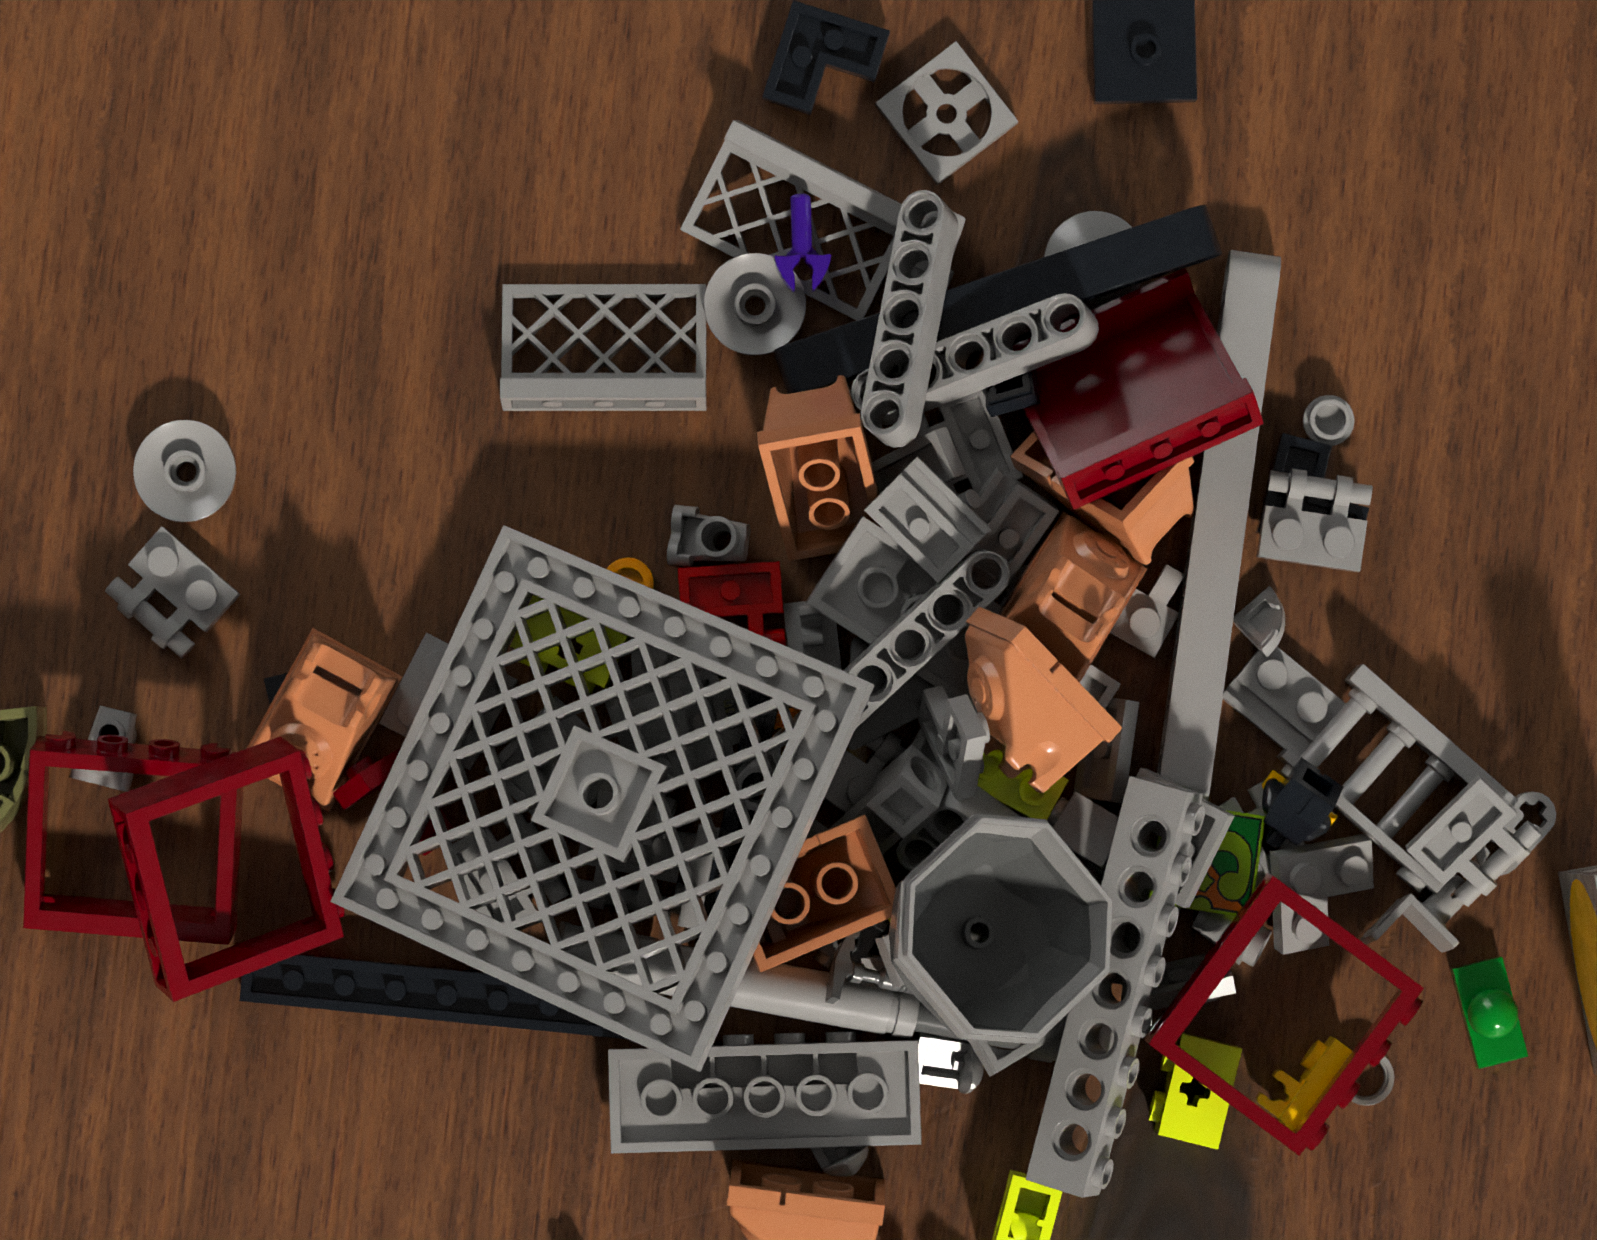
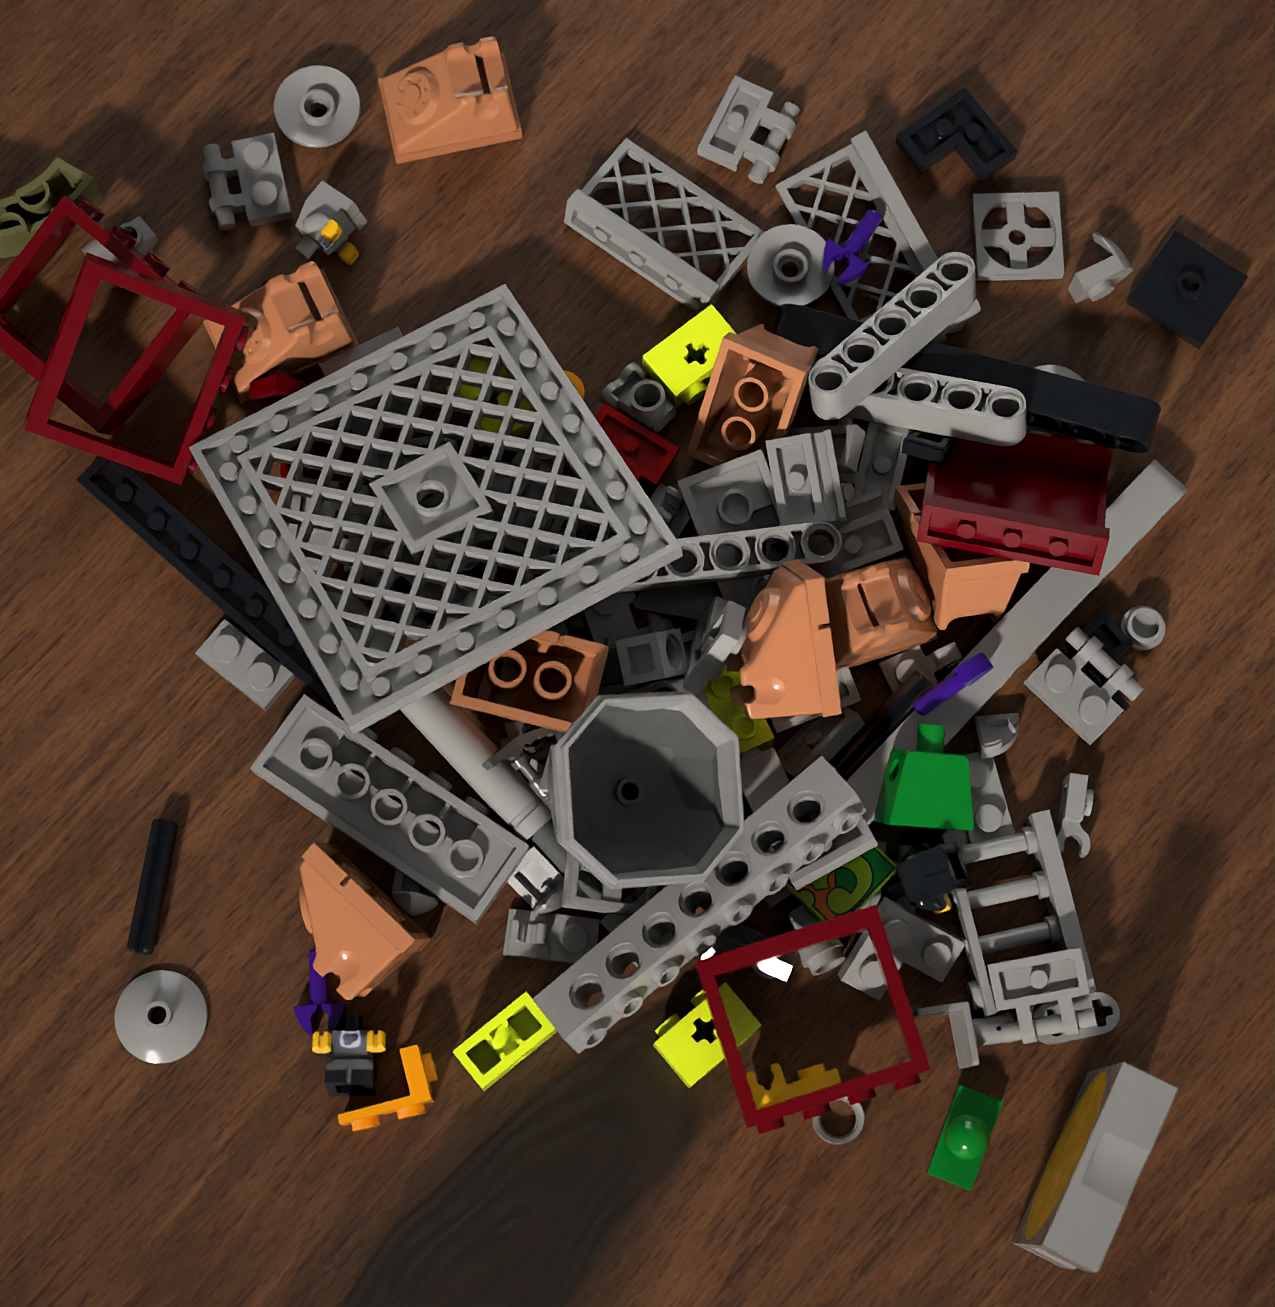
camera: 35 degrees right, 10 degrees down
(284, 582) = (327, 222): none -> light grey piece
(310, 376) = (450, 102): none -> nougat piece
(526, 1056) = (245, 665): none -> light grey plate
(599, 193) = (736, 123): none -> light grey plate
(708, 486) = (669, 359): none -> neon yellow brick
(993, 1102) = (549, 936): none -> light grey plate
(1056, 105) = (1101, 277): none -> light grey plate
(1154, 692) = (880, 725): none -> black axle
(1201, 603) = (964, 676): none -> dark purple bar
(1238, 726) = (926, 785): none -> green torso
(1380, 637) = (1074, 804): none -> light grey plate

